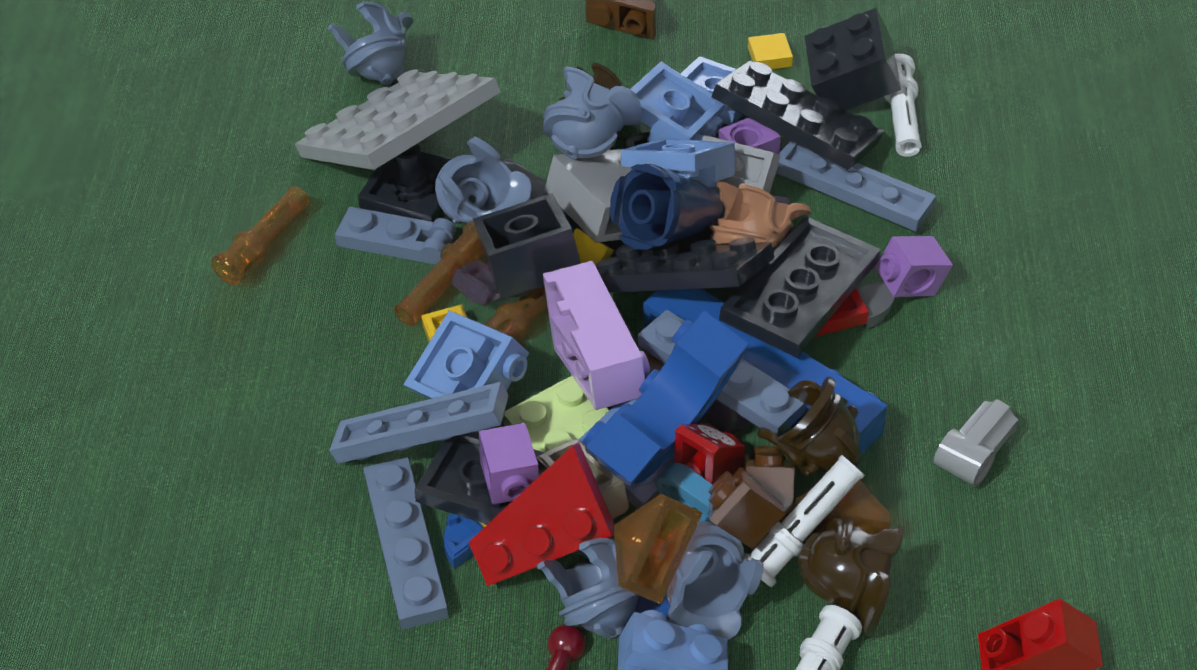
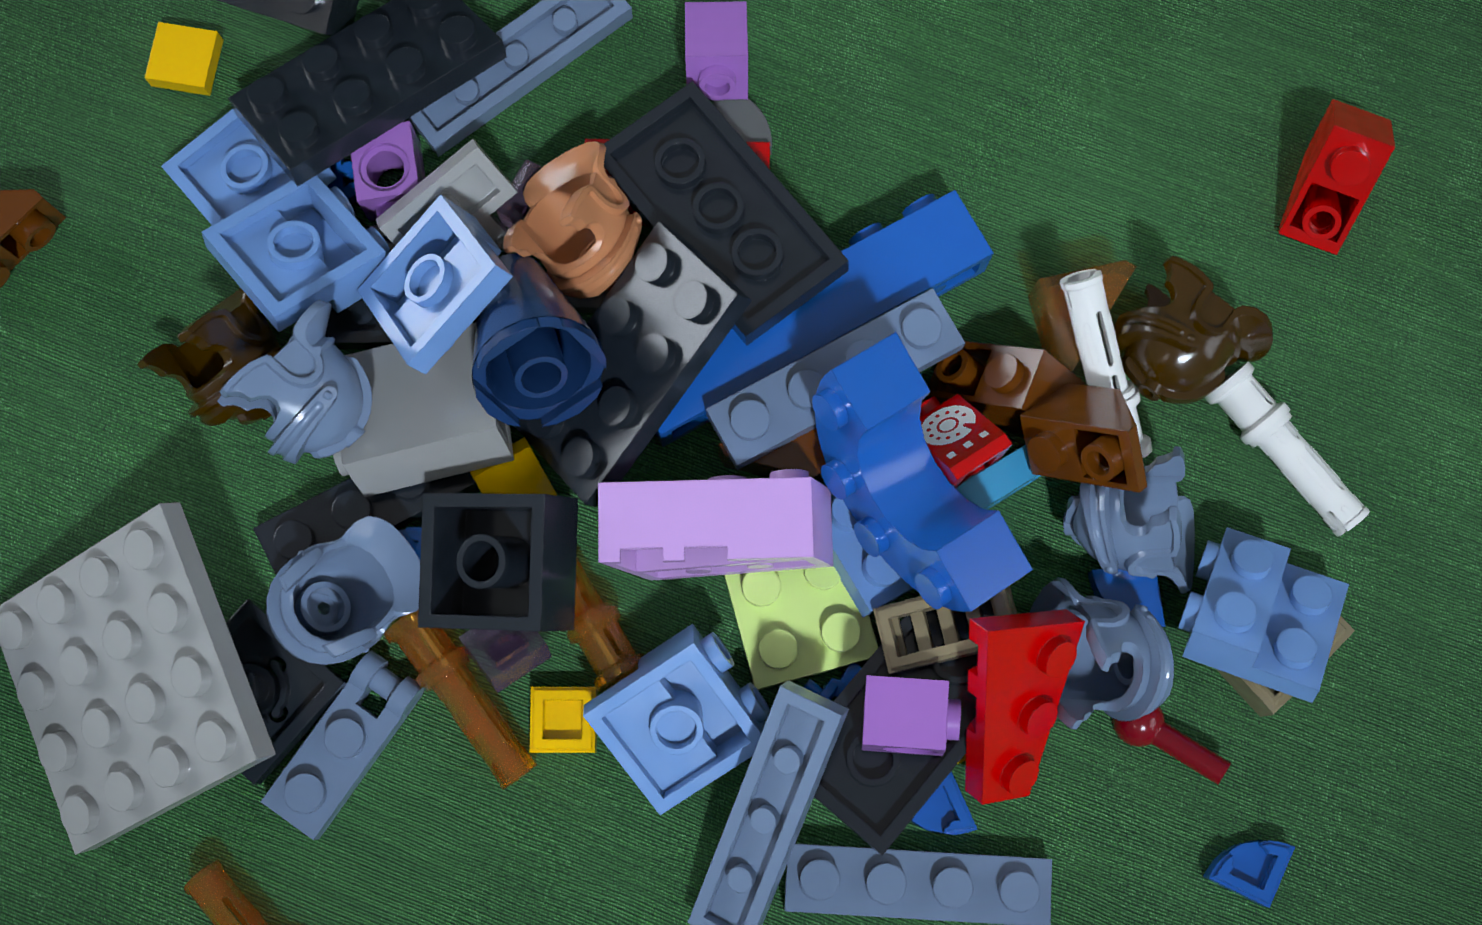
camera: 75 degrees left, 30 degrees up
(652, 545) = (1116, 578): clear orange slope -> none
(822, 433) = (1007, 296): dark brown helmet -> none
(973, 448) = (1031, 120): light grey piece -> none

